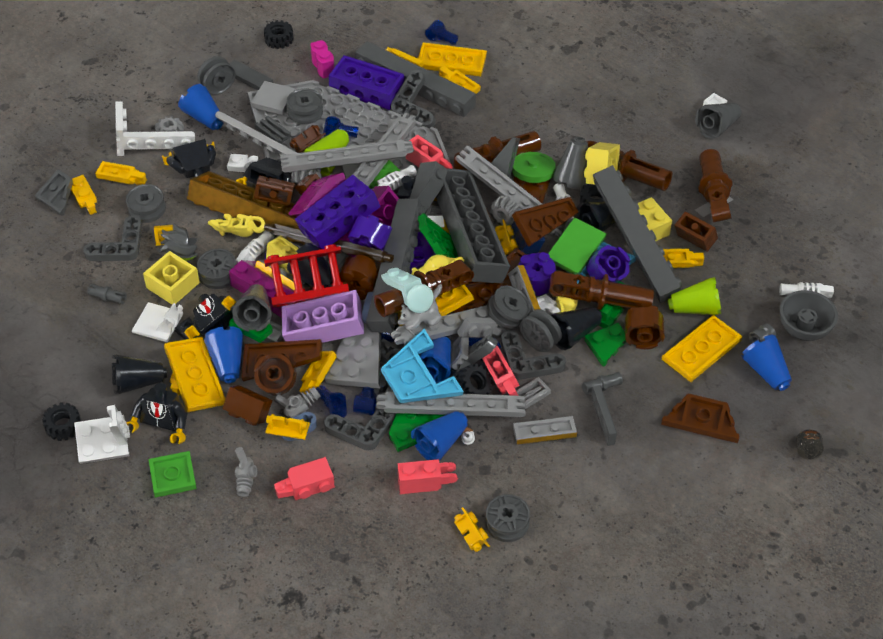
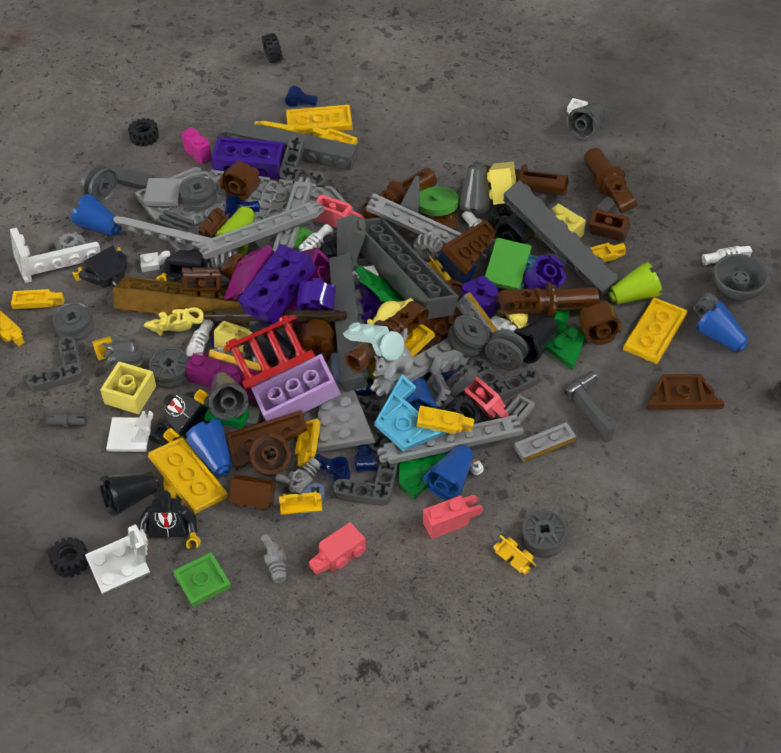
camera: 15 degrees left, 0 degrees up
(347, 103) = (240, 180): none -> reddish brown brick
(447, 383) = (443, 420): none -> yellow hinge

